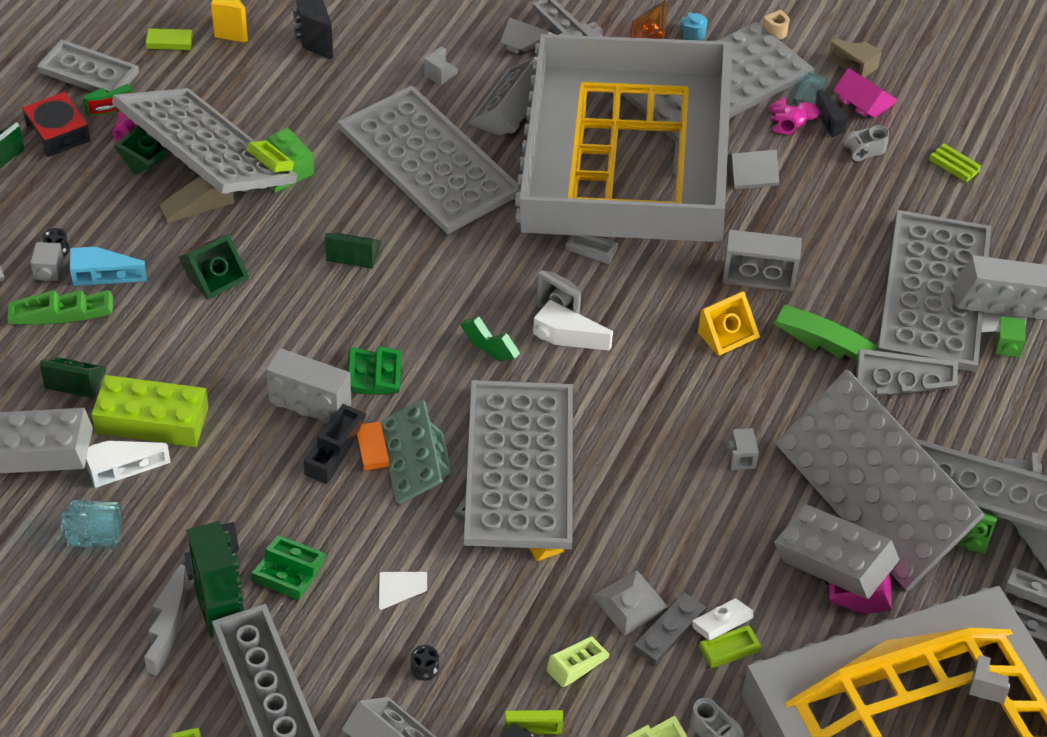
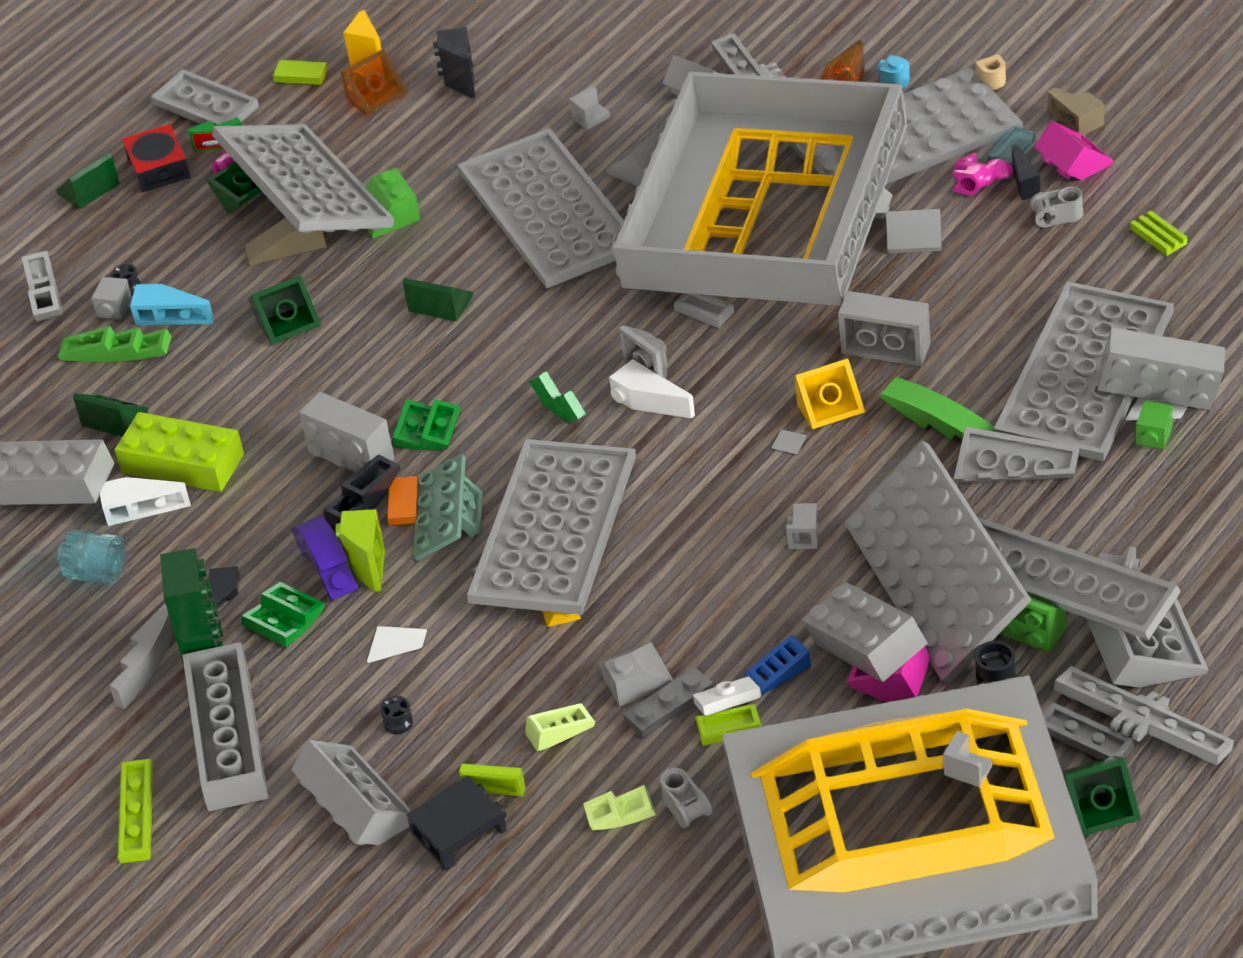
camera: 20 degrees right, 5 degrees down
(241, 49) = (372, 83): none -> clear orange slope
(270, 156) = (368, 197): lime tile -> none
(320, 503) = (324, 549): none -> dark purple arch
(352, 497) = (363, 546): none -> lime slope
(701, 368) = (789, 441): none -> light grey sticker
(769, 572) = (796, 658): none -> blue slope
(952, 576) = (994, 662): none -> black wheel

